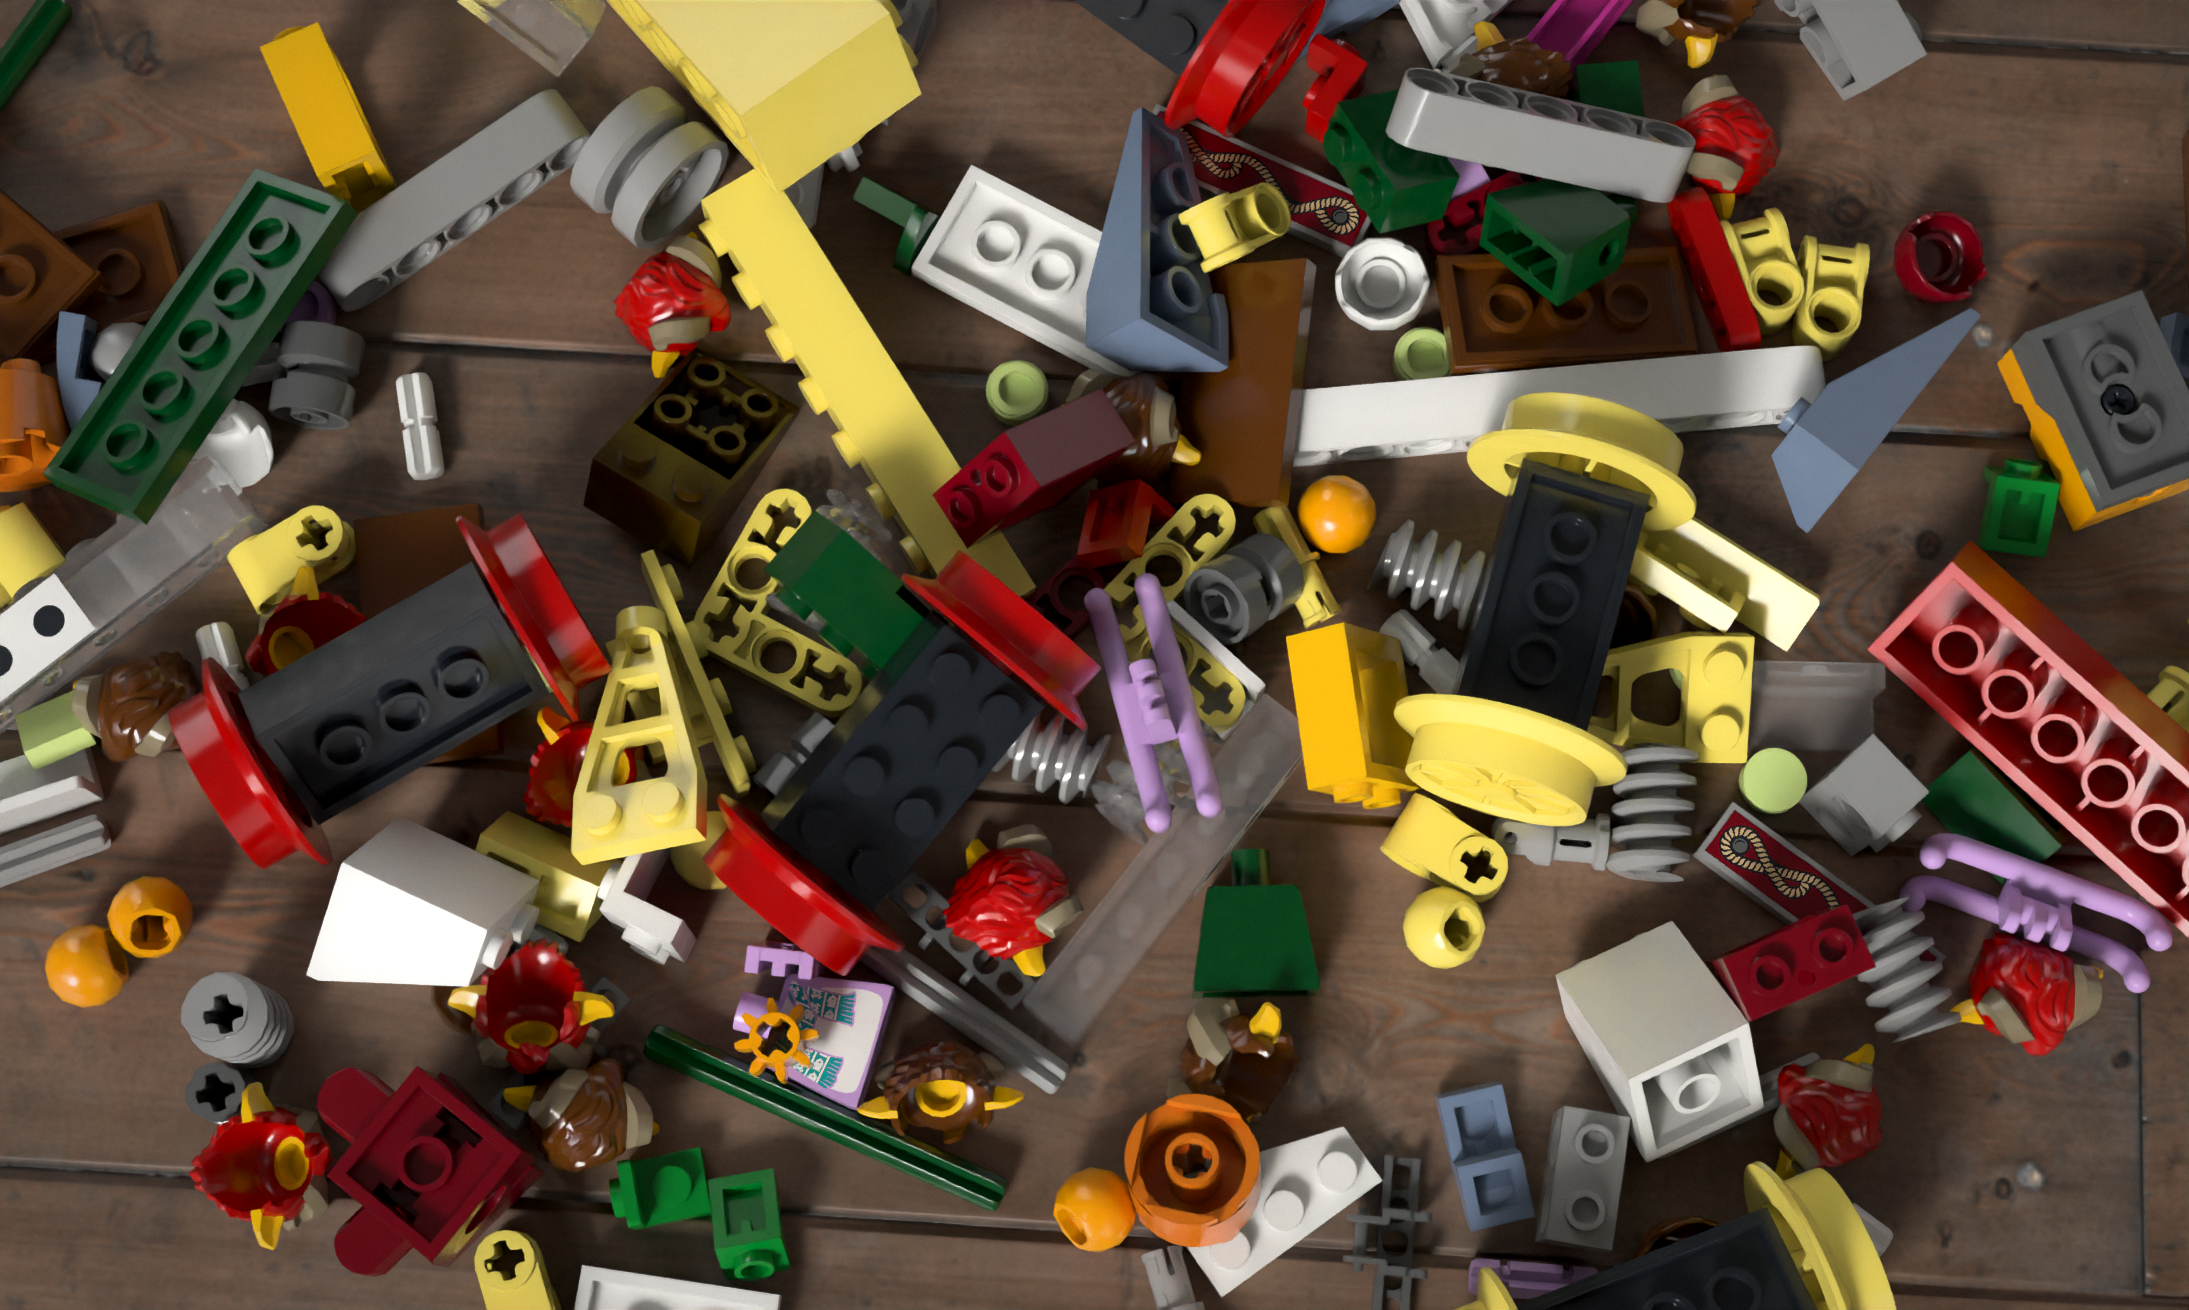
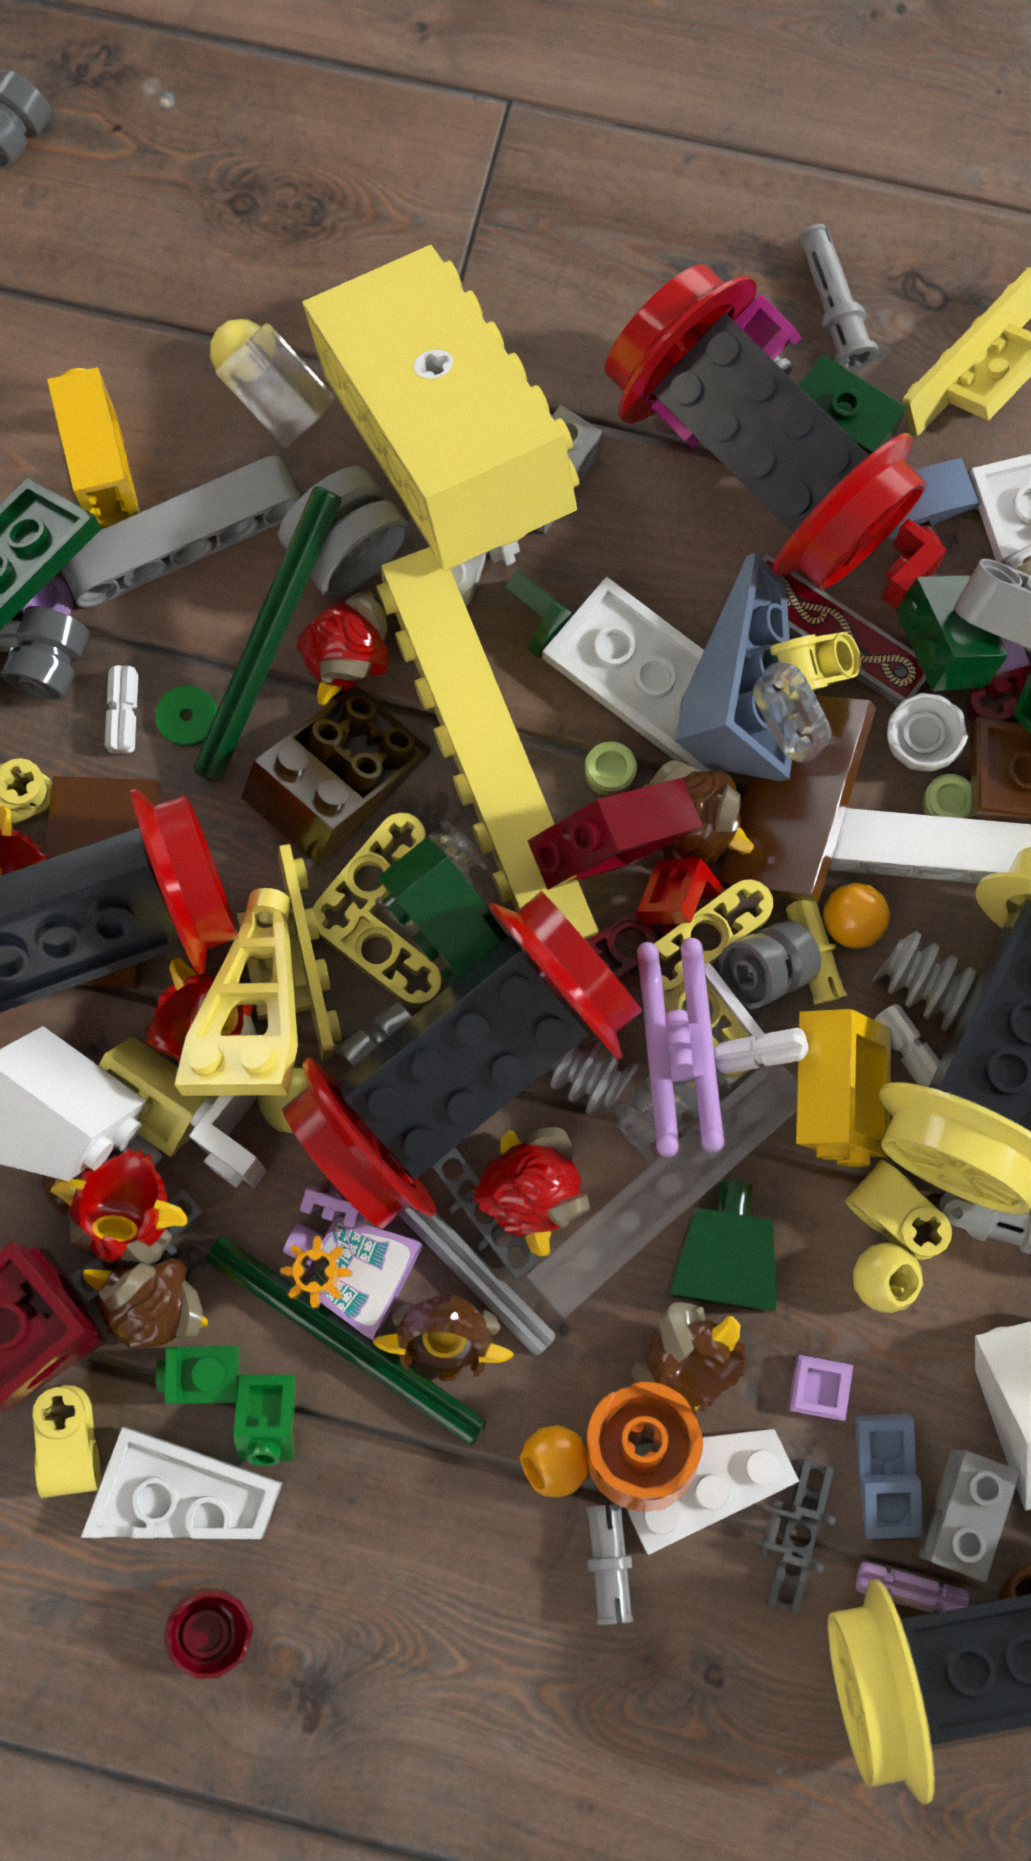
camera: 10 degrees right, 0 degrees up
(485, 406) = (183, 700): none -> green wheel
(579, 305) = (267, 633): none -> dark green axle
(1217, 288) = (792, 712): none -> clear beam
(1241, 692) = (770, 1050): none -> white piece
(1389, 1070) = (820, 1387): none -> lavender tile

